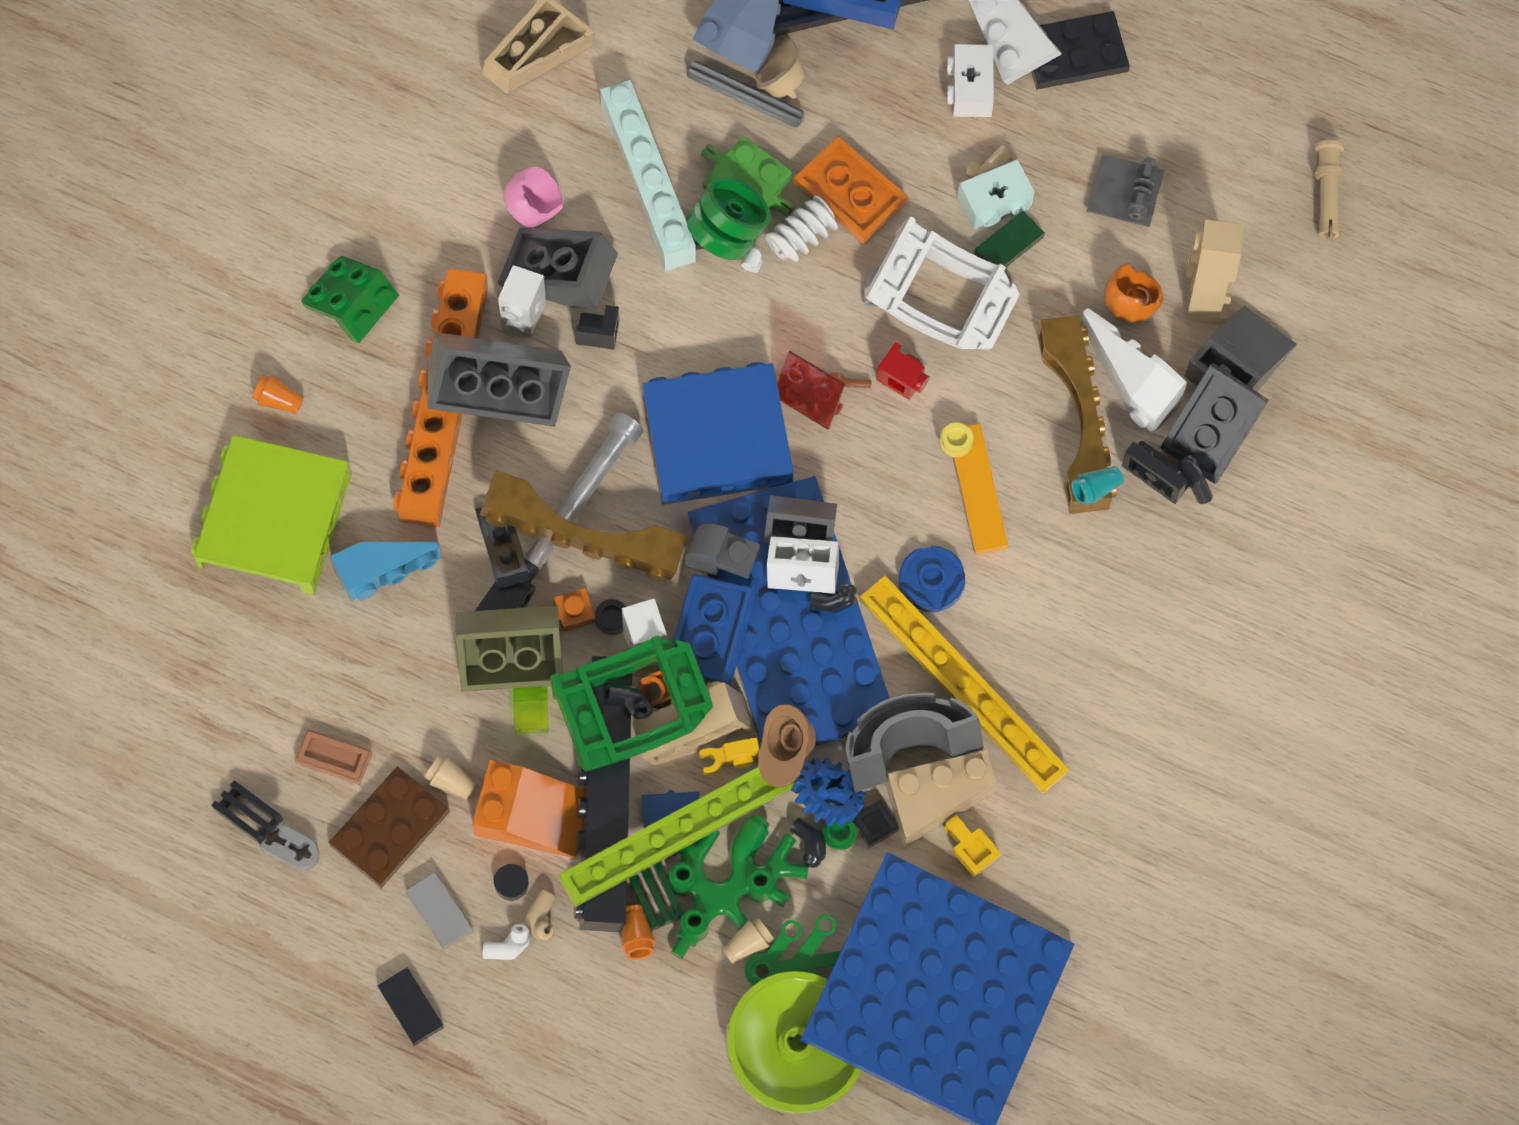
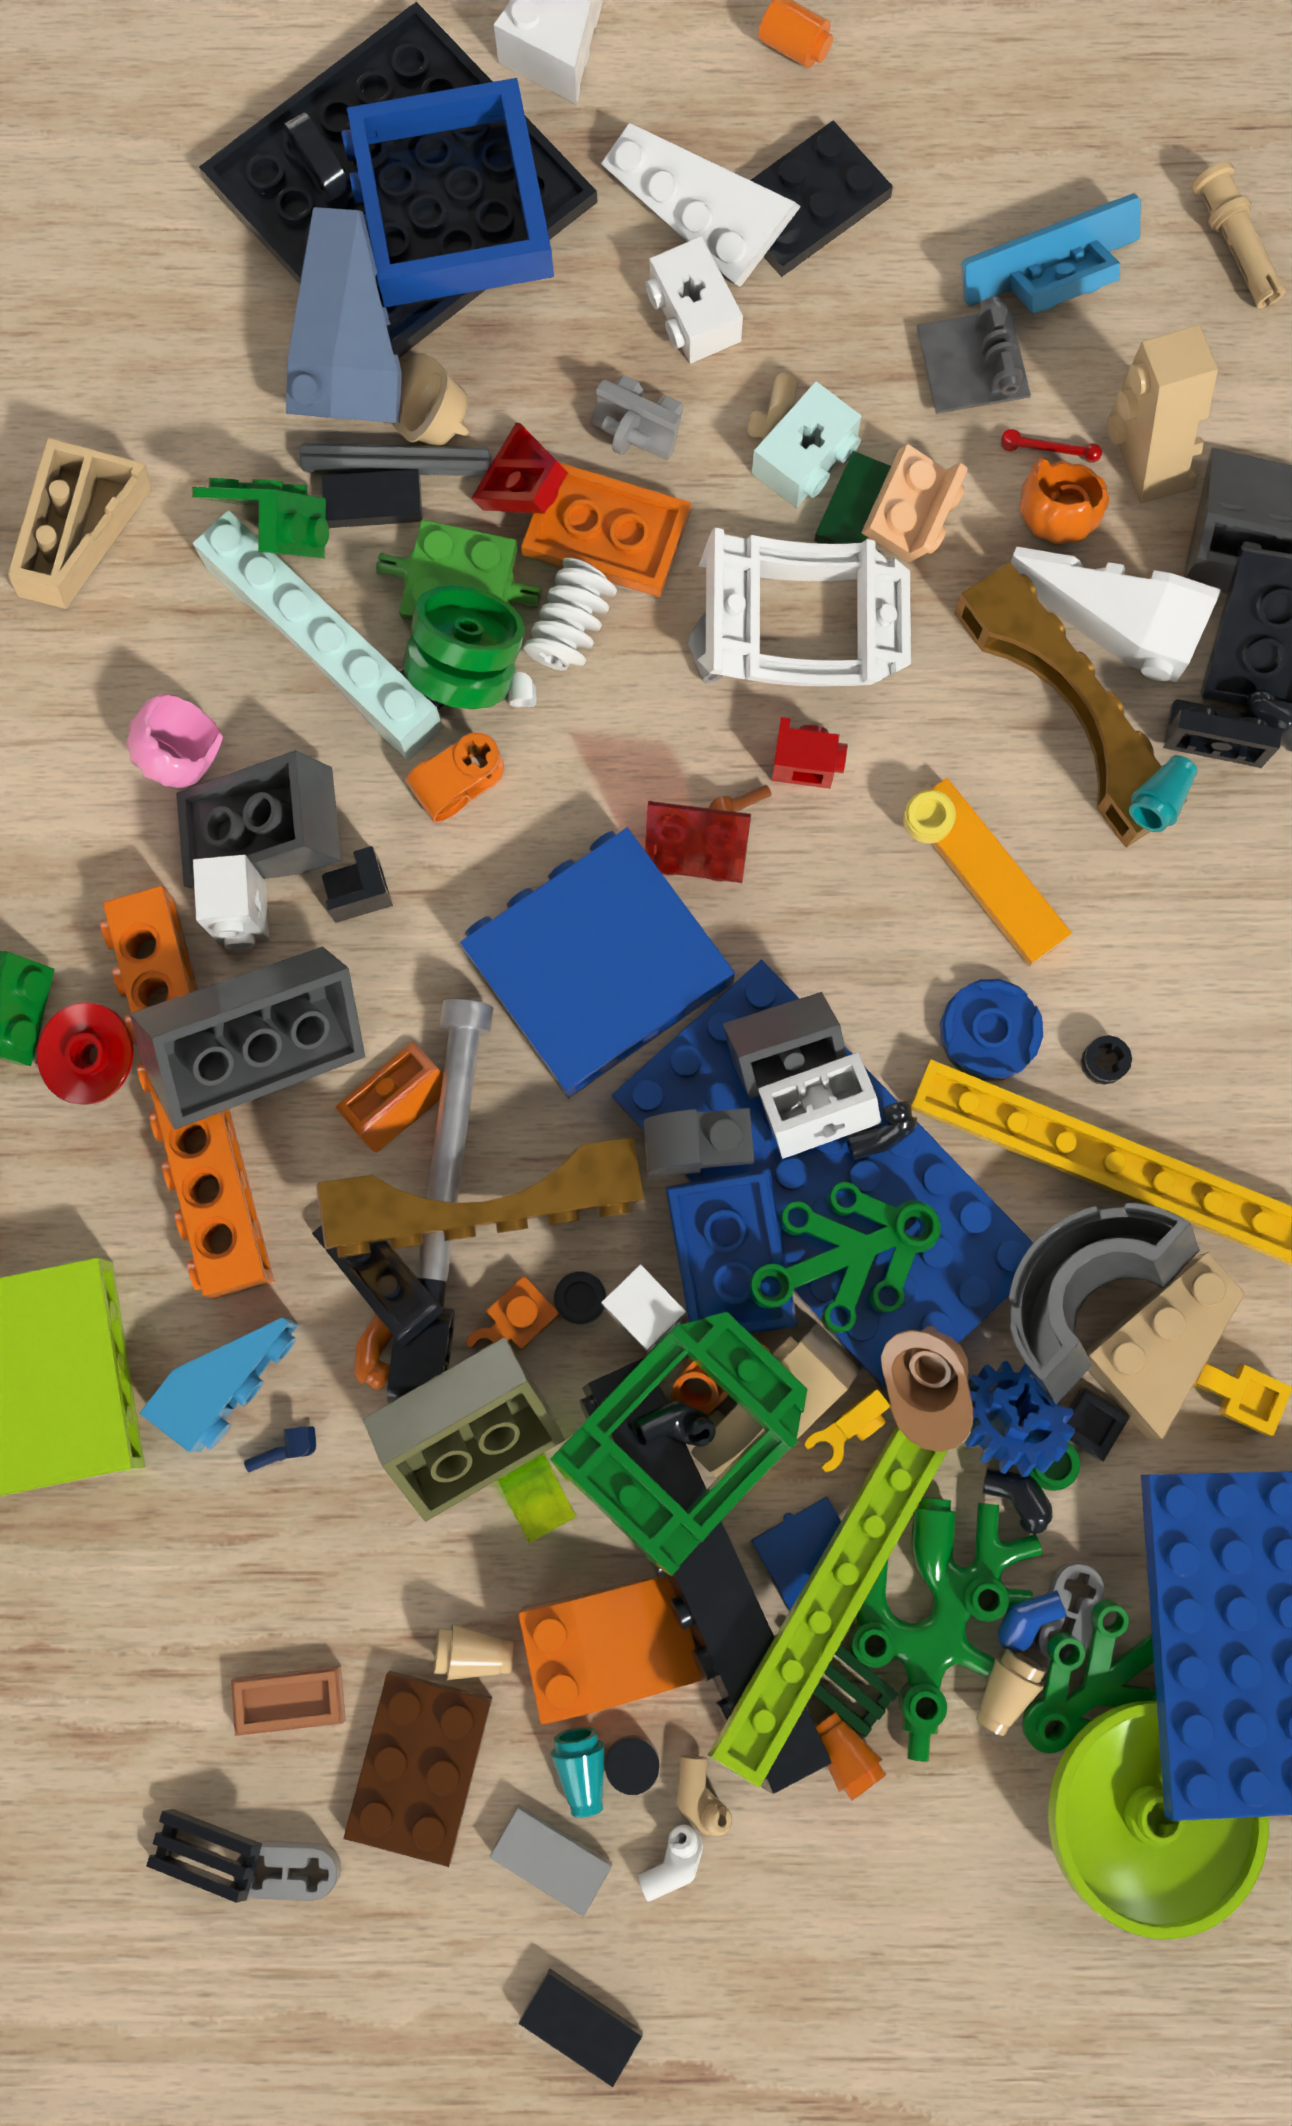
camera: 20 degrees left, 10 degrees up
(389, 338) = (66, 1049): none -> red dish
(409, 621) = (298, 1443): none -> dark blue hand
(475, 588) = (368, 1352): none -> orange arm
(480, 869) = (580, 1768): none -> teal cone
(559, 456) = (393, 1097): none -> orange slope
(663, 98) = (288, 517): none -> green bracket
(685, 291) = (451, 779): none -> orange piece
(720, 110) = (373, 498): none -> black tile
(777, 904) = (1026, 1618): none -> blue arm
(780, 655) = (853, 1251): none -> green plant
(800, 913) = (1080, 1619): none -> light grey beam
(814, 137) = (520, 477): none -> red wing
(899, 135) = (635, 419): none -> light grey hips
(983, 620) = (1119, 1069): none -> black bush
(1042, 257) = (914, 504): none -> light nougat bracket
(1125, 247) = (1012, 440): none -> red hinge
(1206, 153) = (1057, 259): none -> dark azure bracket

